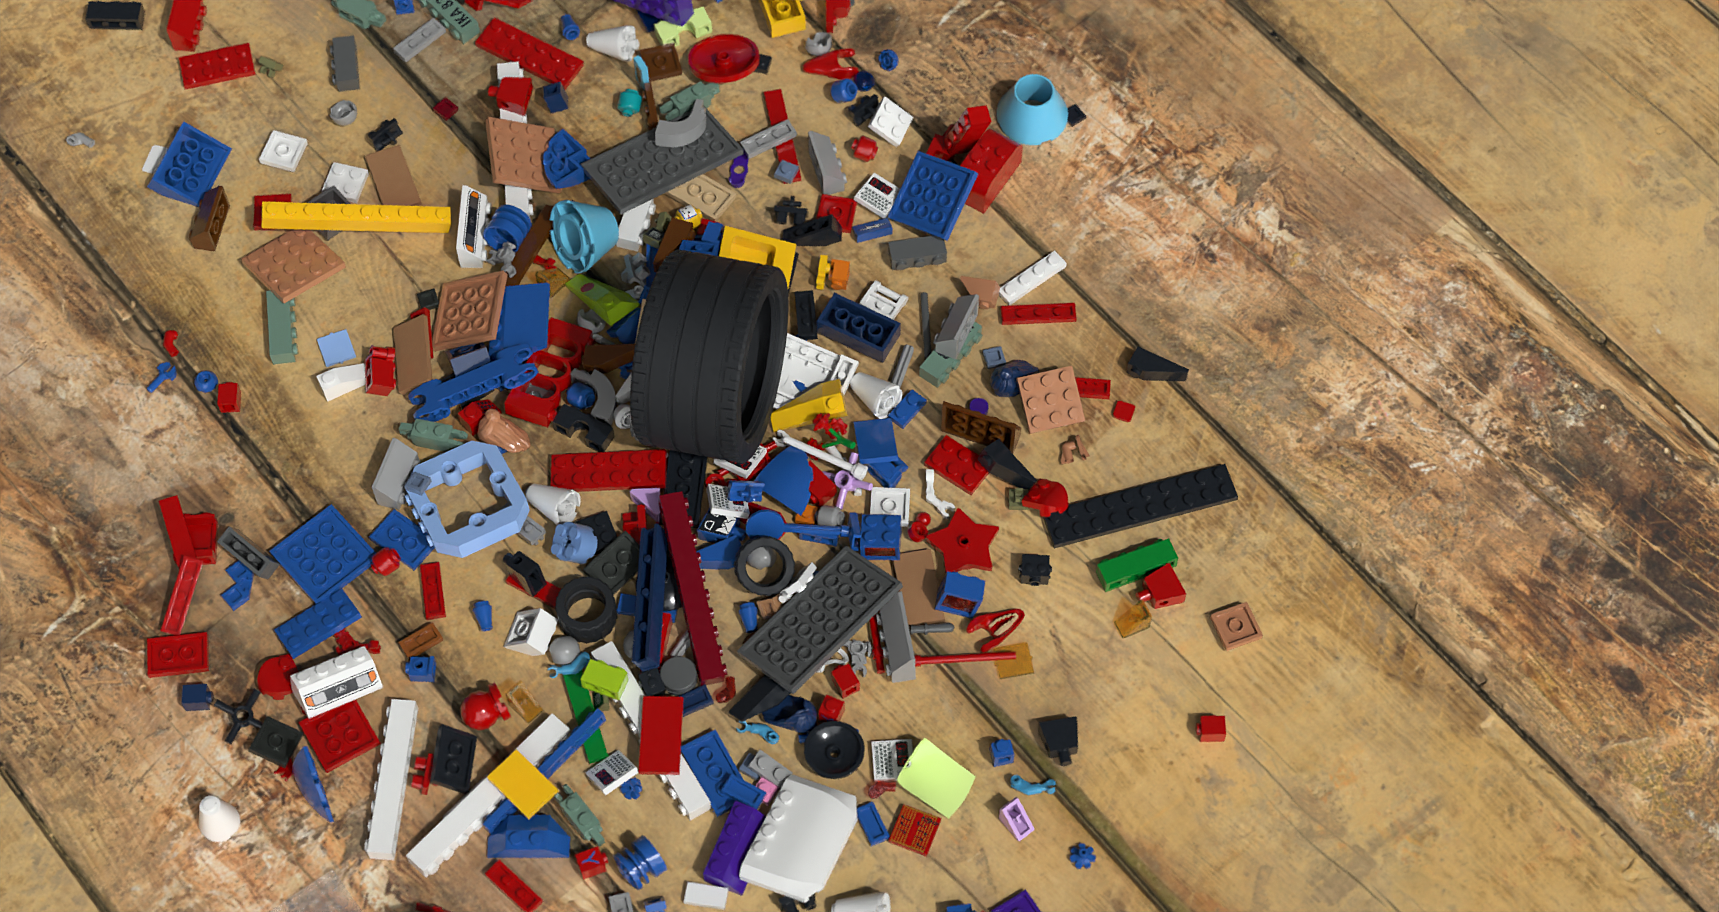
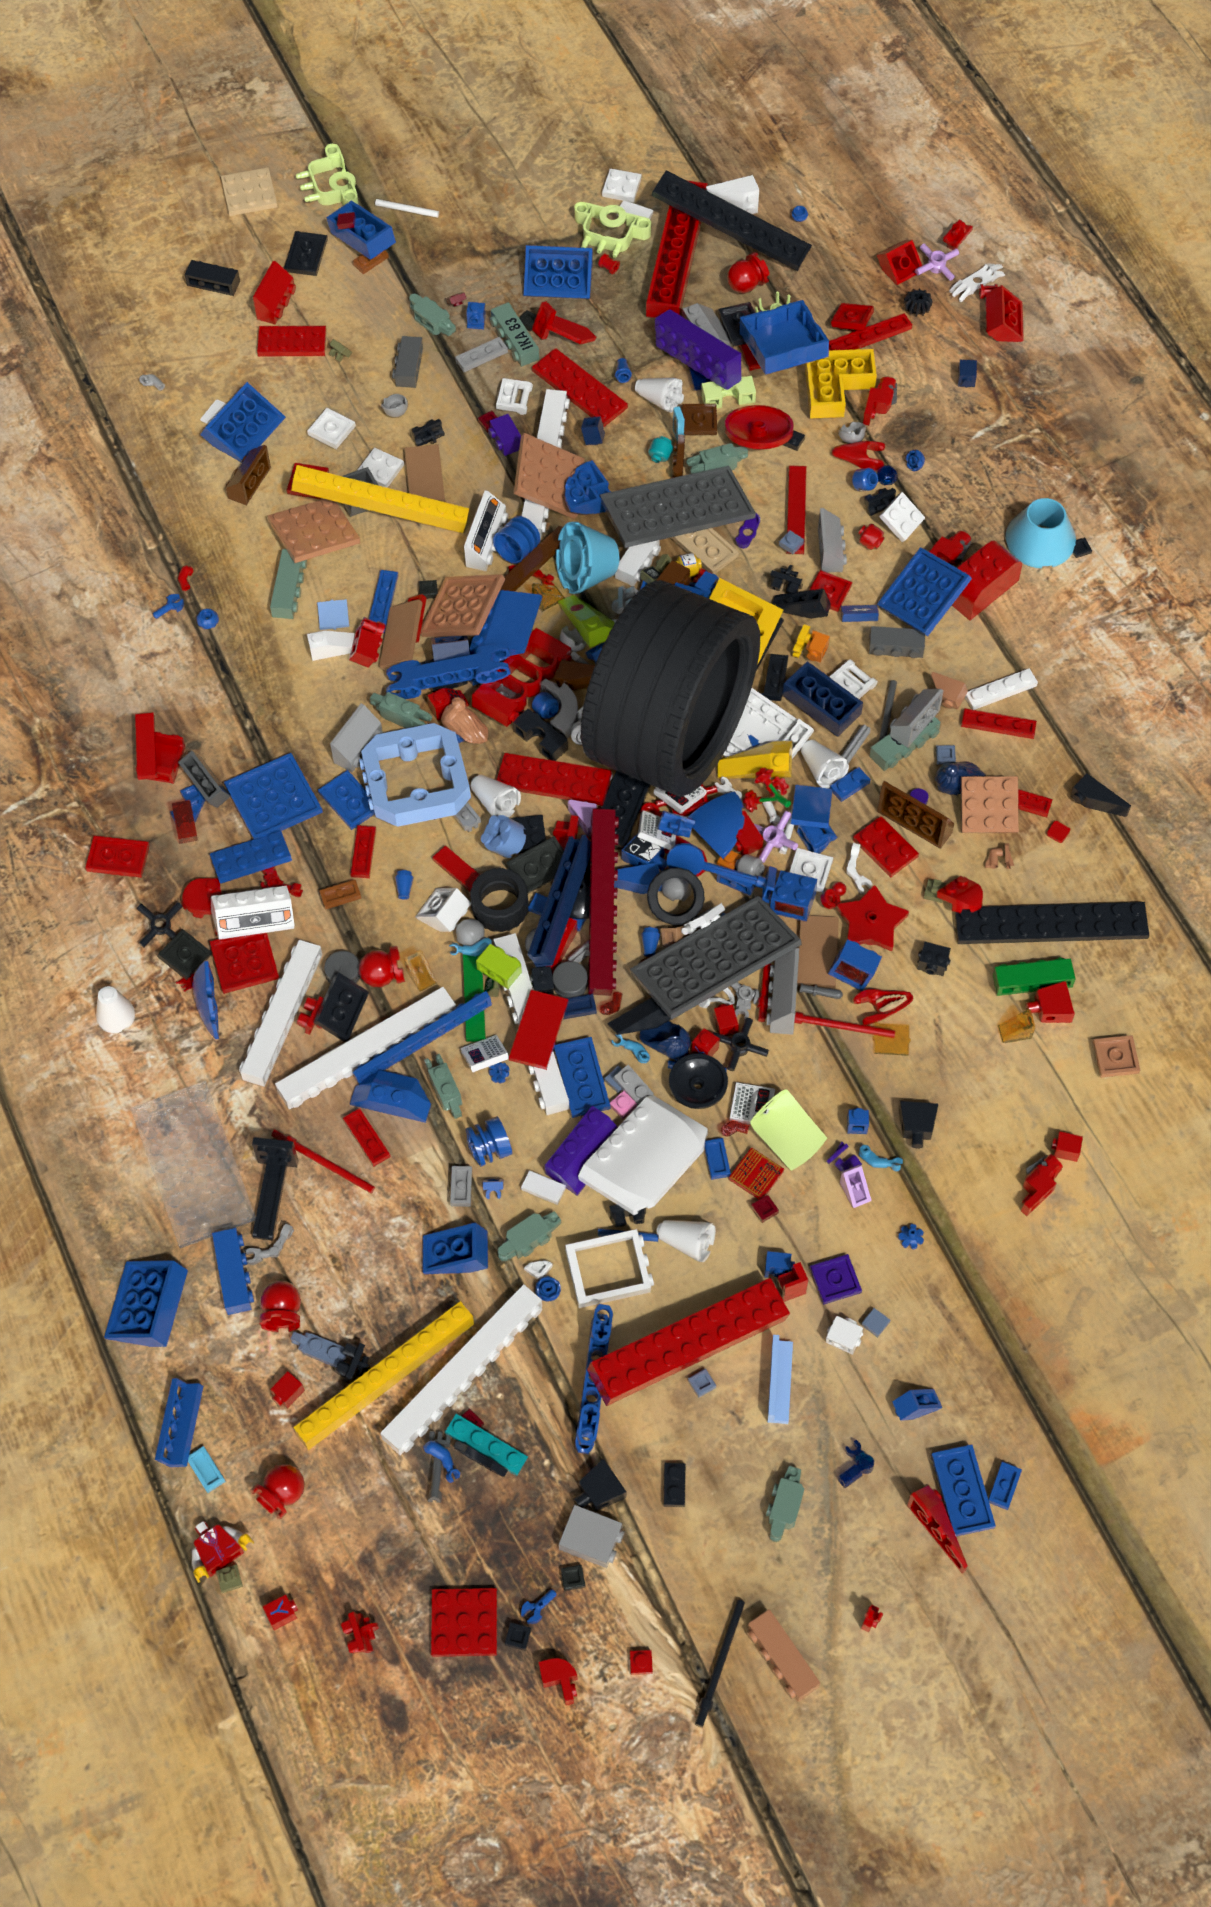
camera: 15 degrees right, 0 degrees up
(182, 595) = (134, 803): red tile -> none
(196, 697) = (124, 898): dark blue brick -> none
(229, 397) = (224, 637): red brick -> none
(239, 602) = (184, 822): none -> clear red brick
(384, 318) = (383, 596): none -> blue tile
(385, 561) = (326, 815): red head -> none
(417, 483) = (373, 750): sand blue tile -> none
(423, 674) = (337, 923): blue brick -> none
(445, 713) = (342, 962): none -> dark grey head
(458, 76) = (508, 395): none -> white plate
(466, 119) = (505, 434): none -> dark purple brick
(504, 255) = (507, 563): light grey piece -> none
(513, 94) = (553, 418): red torso -> none
(520, 568) = (447, 846): black torso -> none
(522, 784) = (398, 1044): yellow tile -> none
(591, 862) = (444, 1131): red brick -> none
(682, 132) = (703, 485): light grey arch -> none
(743, 791) = (602, 1099): blue tile -> none
(768, 138) = (782, 508): light grey plate -> none
(858, 470) = (786, 828): white piece -> none
(865, 709) = (739, 1051): none -> black bar
(877, 195) = (872, 582): white tile -> none
(932, 863) = (765, 1208): none -> dark red plate
(967, 130) = (972, 536): red brick -> none
(1003, 464) = (930, 856): black slope -> none
(1005, 796) = (840, 1164): none -> dark purple piece
(1194, 770) = (1040, 1182): none -> red plate

